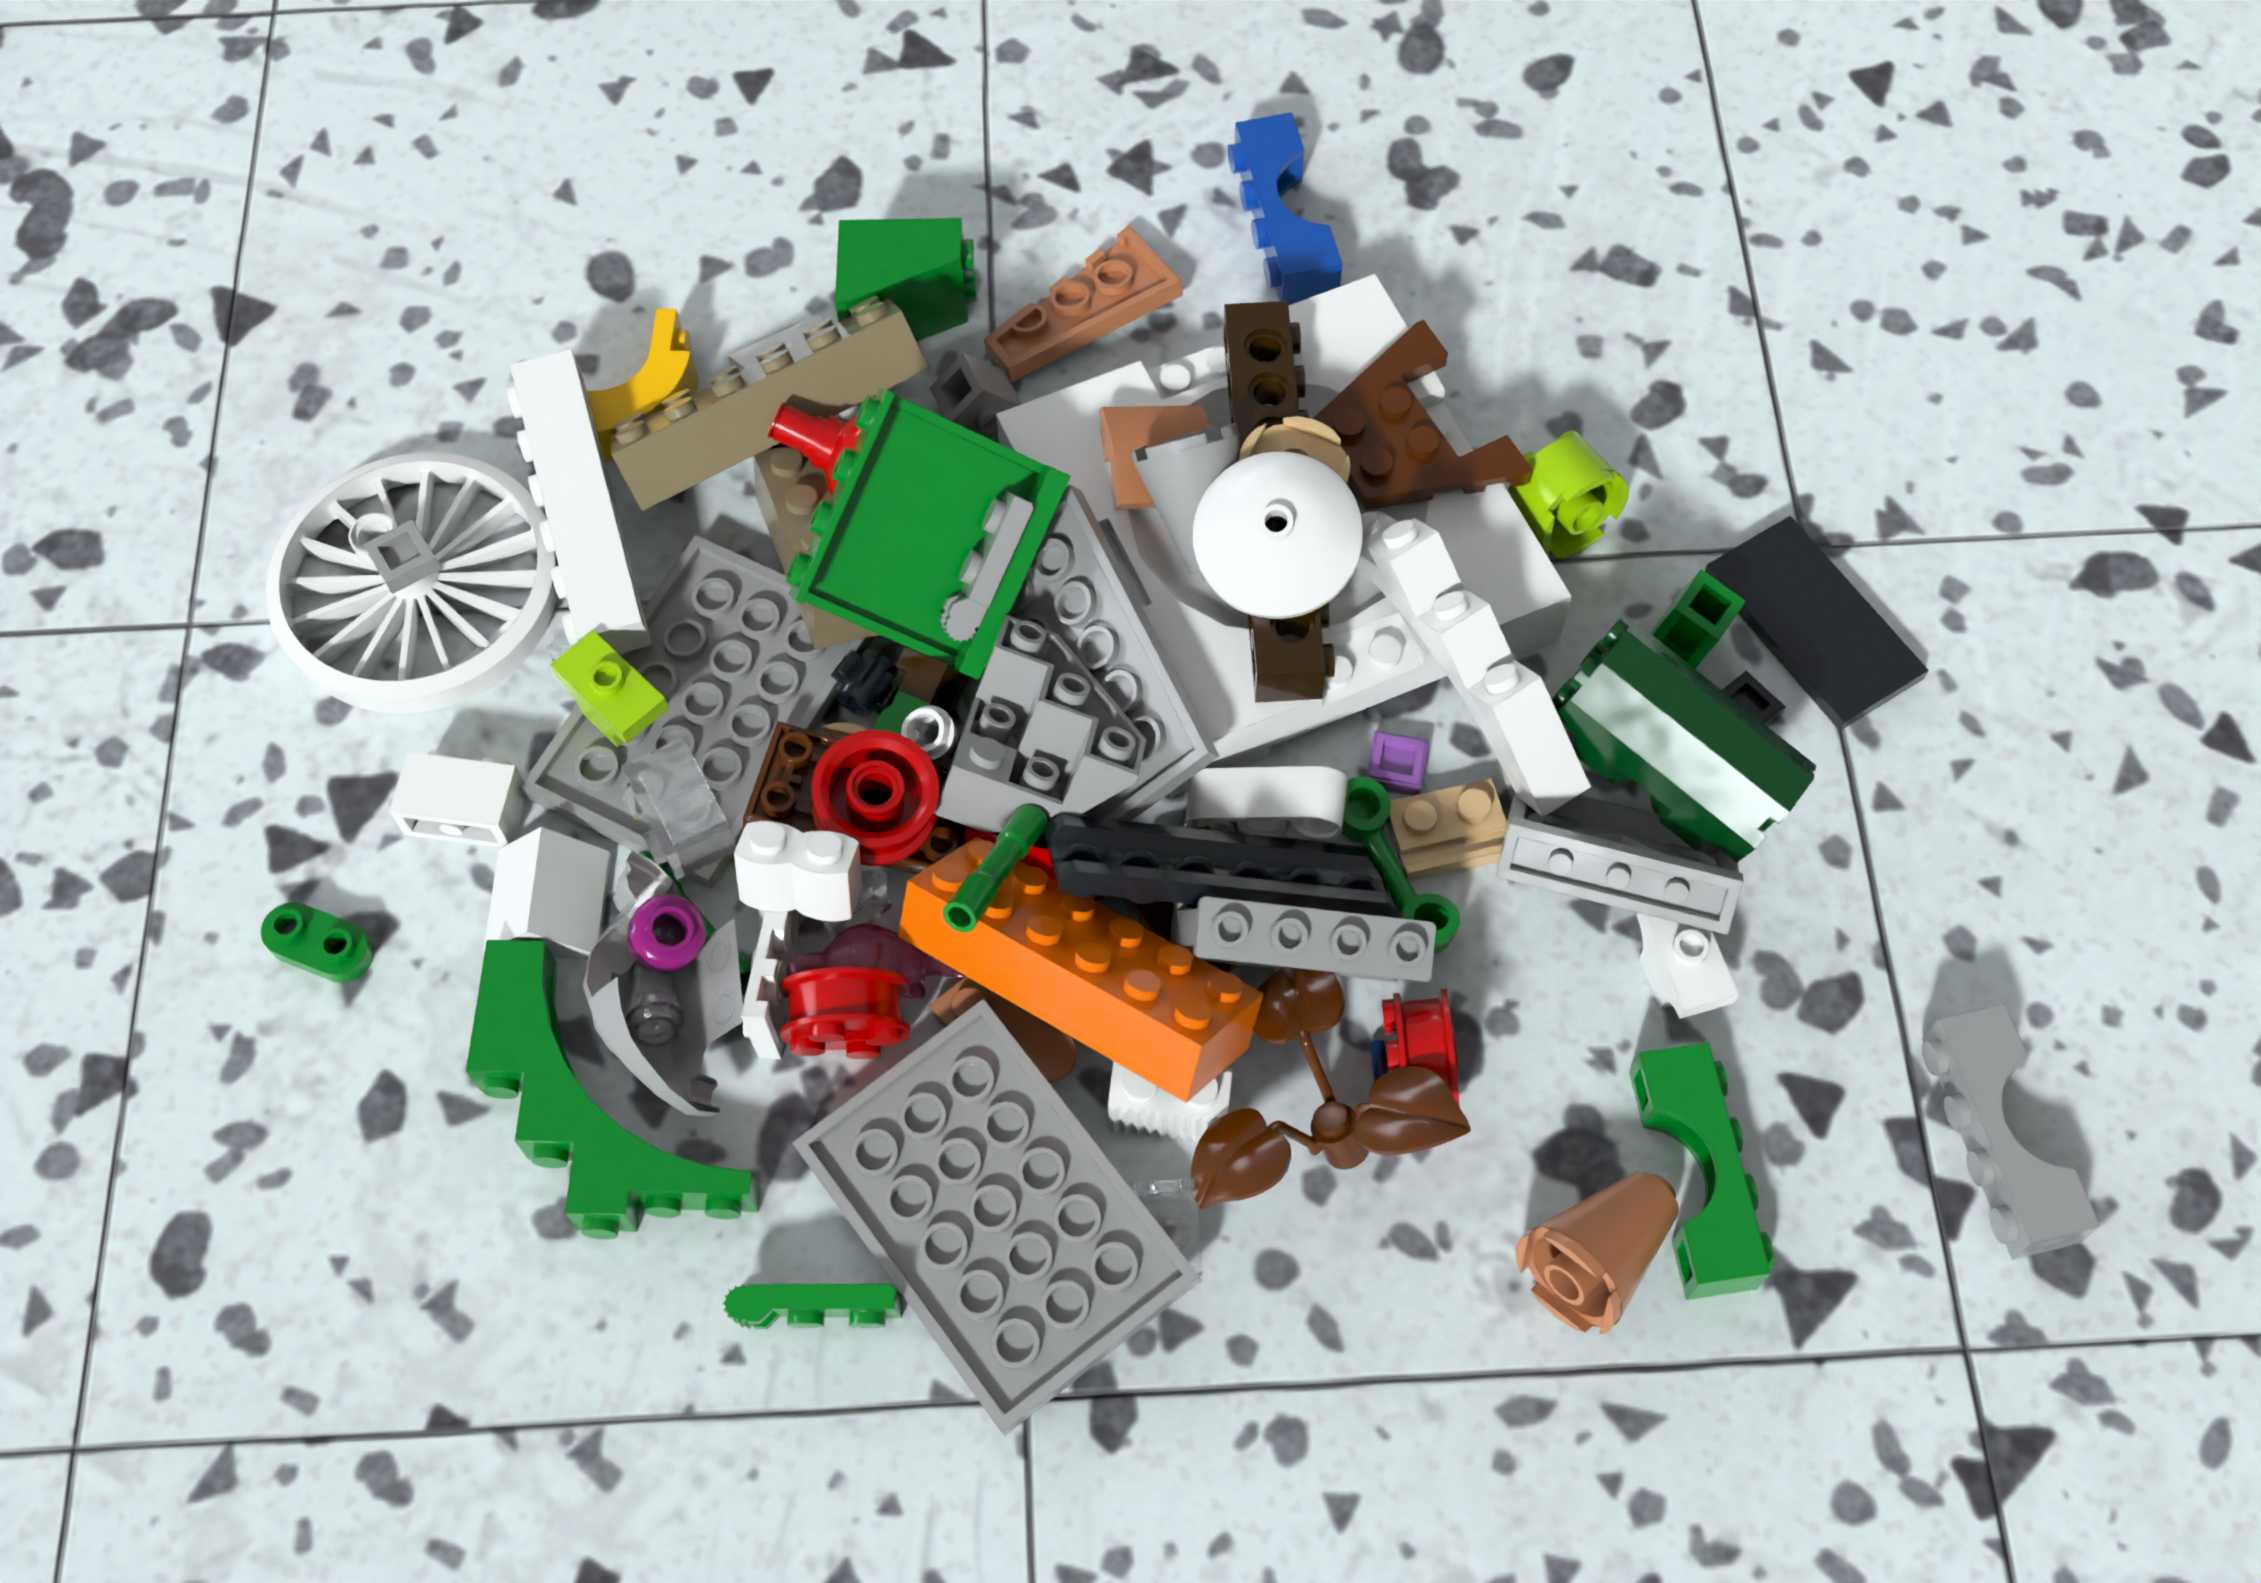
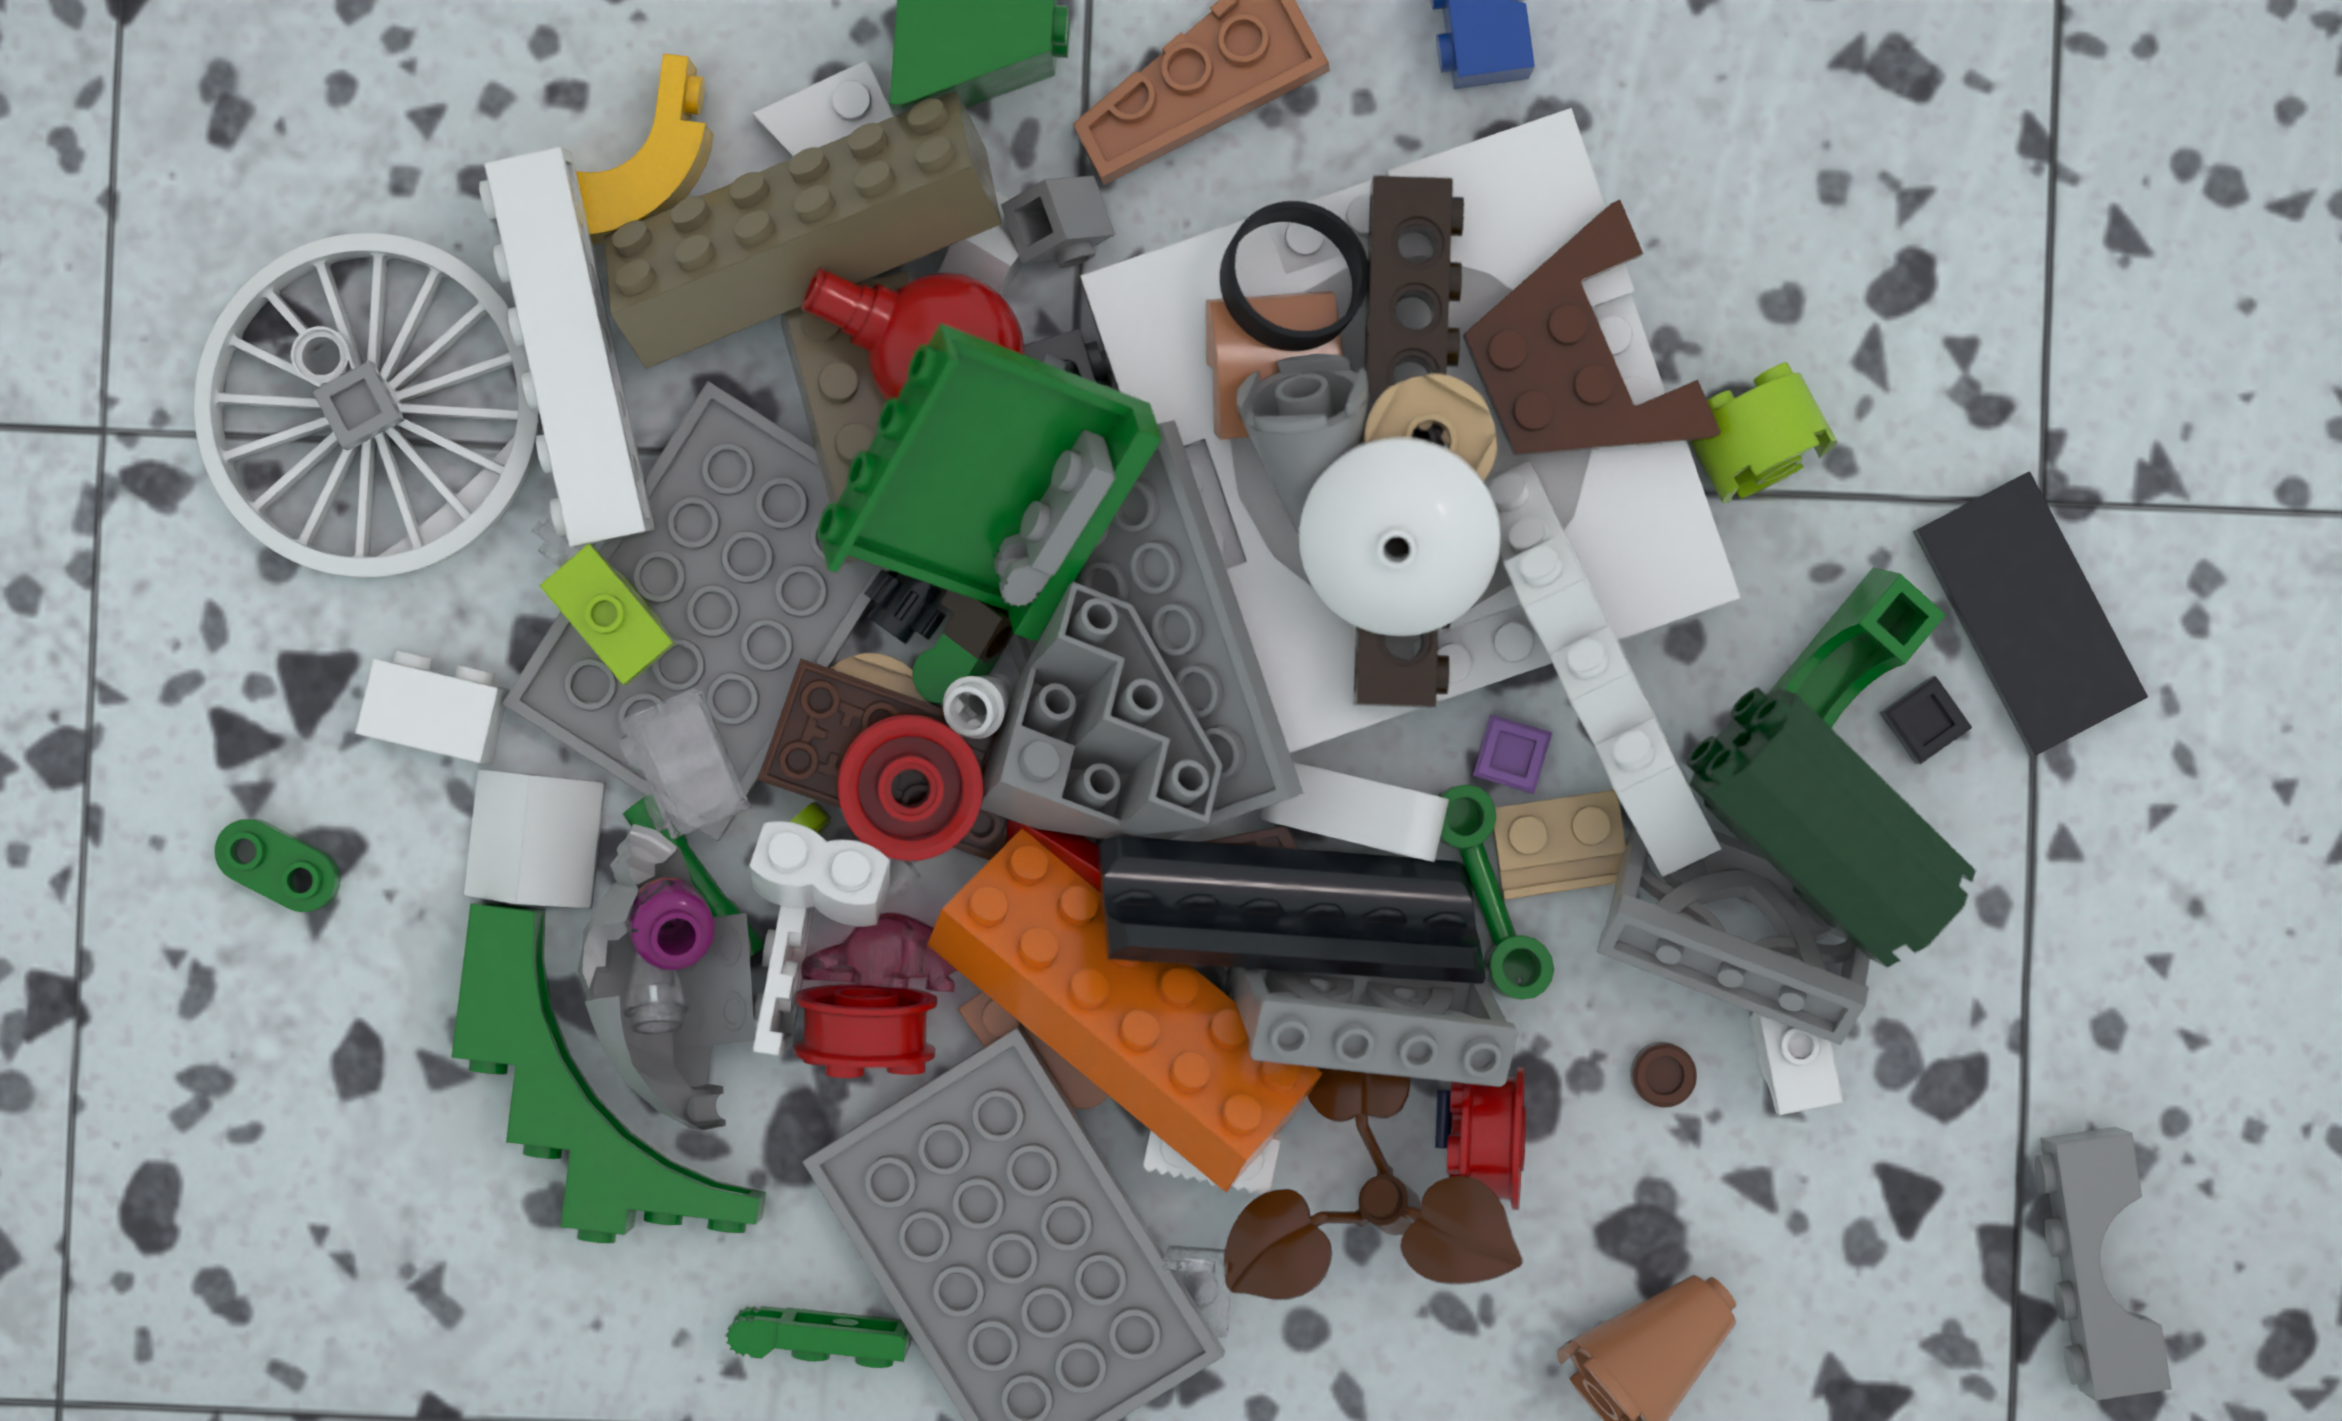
camera: 10 degrees right, 25 degrees up
(982, 886) = (1023, 941): green piece -> none
(1175, 351) = (1327, 224): none -> black tyre
(1572, 1010) = (1663, 1074): none -> reddish brown tile
(1683, 1097) = (1774, 1356): green arch -> none

